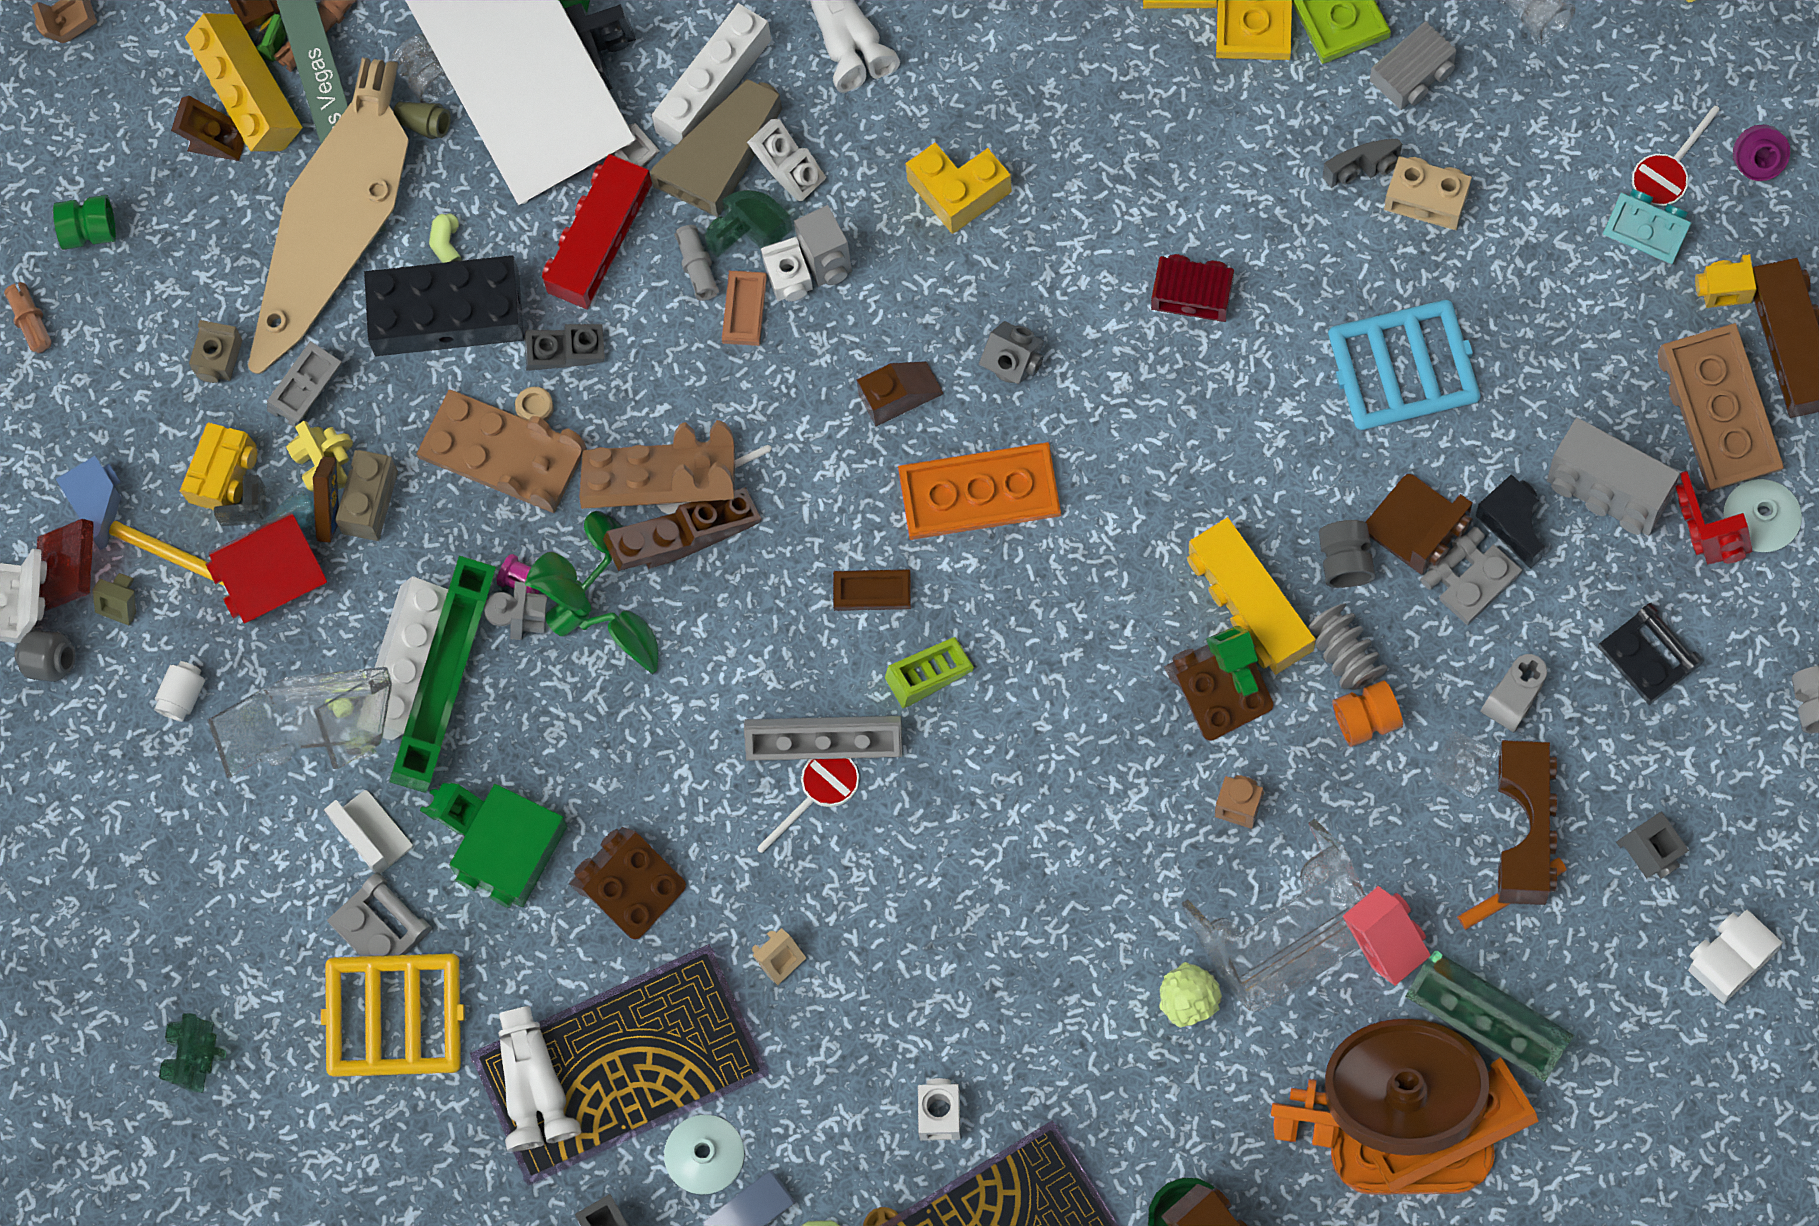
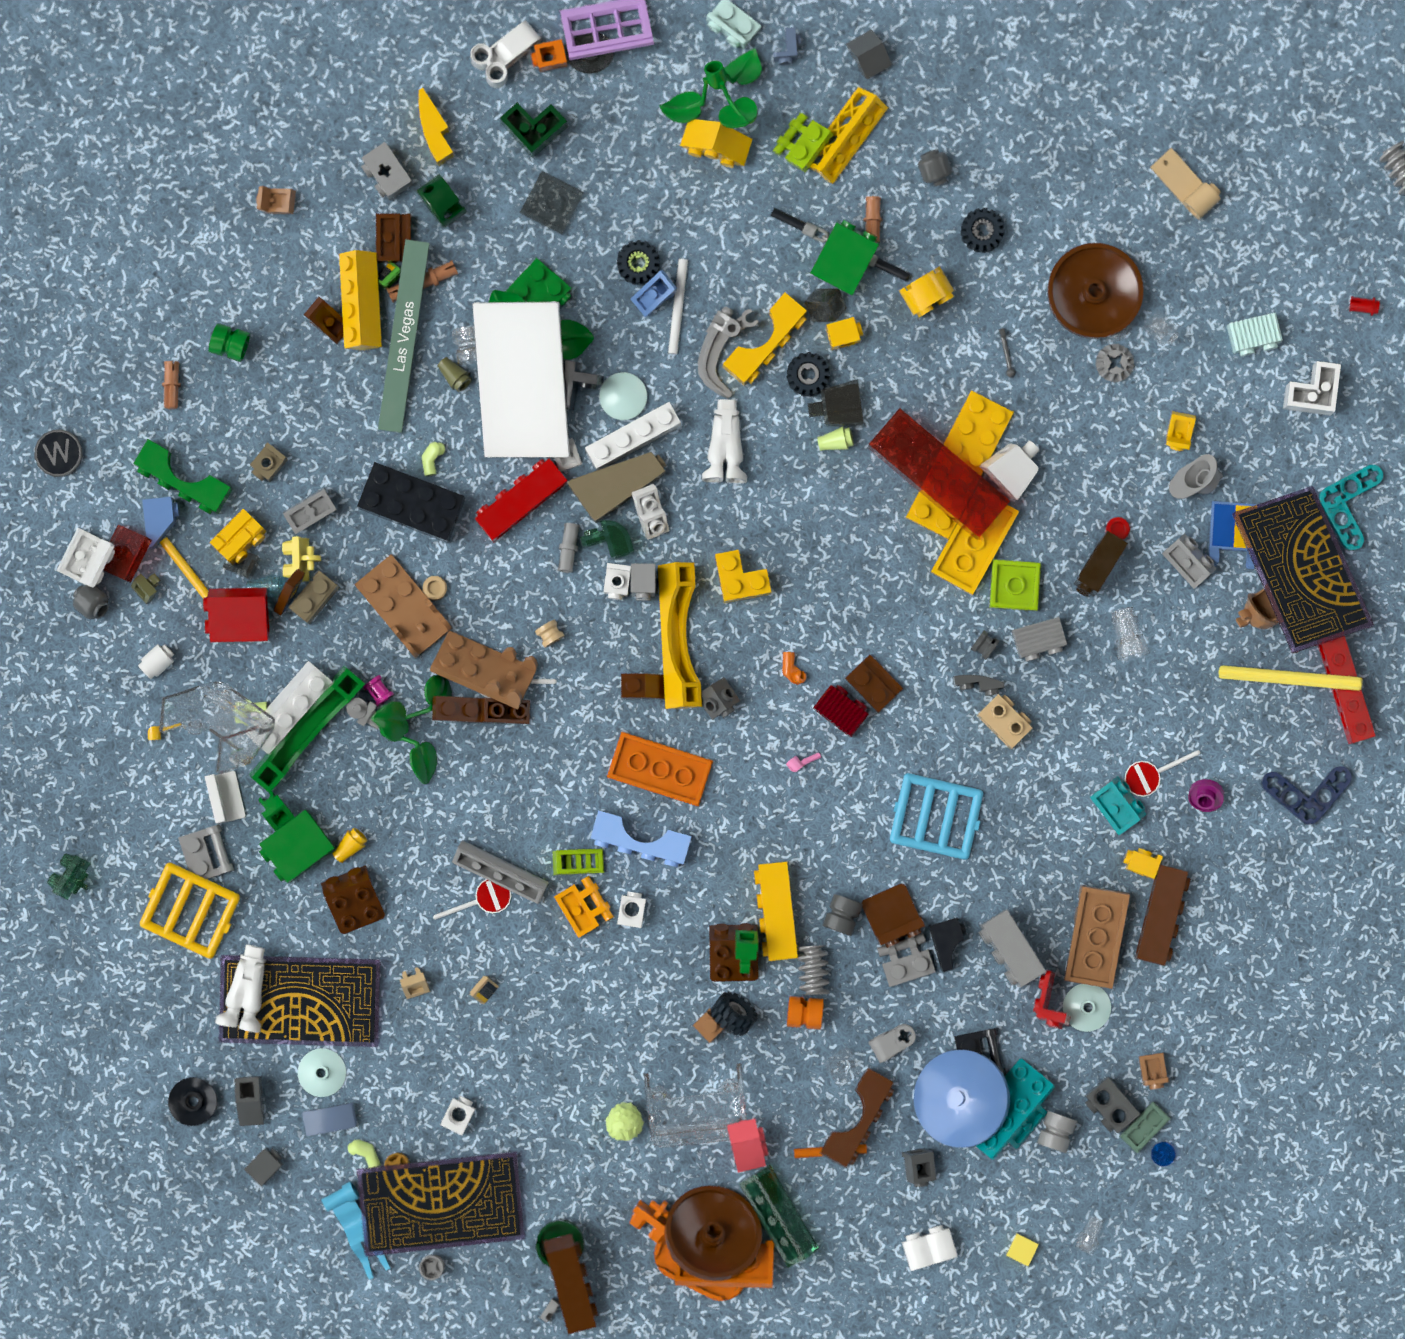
camera: 15 degrees right, 15 degrees up
(147, 431) = (156, 462): none -> green arch
(222, 789) = (154, 733): none -> yellow hand
(332, 213) = (374, 410): tan wing -> none
(564, 348) = (468, 560): dark grey slope -> none
(585, 807) = (350, 844): none -> yellow cone
(671, 37) = (623, 396): none -> light aqua dish
(727, 384) = (549, 633): none -> tan wheel
(744, 308) = (582, 589): nougat tile -> none
(872, 590) = (570, 797): reddish brown tile -> none
(875, 239) = (681, 683): none -> yellow arch
(883, 913) = (484, 989): none -> slope
(956, 604) = (610, 830): none -> light blue arch
(961, 736) = (576, 909): none -> light orange plate
(1047, 712) = (623, 918): none -> white brick
(1092, 274) = (790, 671): none -> orange arm
(1167, 391) = (795, 764): none -> bright pink hand
(1218, 234) = (873, 683): none -> reddish brown plate
(1266, 761) = (734, 1013): none -> black bush
(1343, 109) = (985, 644): none -> dark grey wheel
(1660, 718) = (961, 1098): none -> medium blue dish
(1737, 705) = (1027, 1093): none -> teal bracket

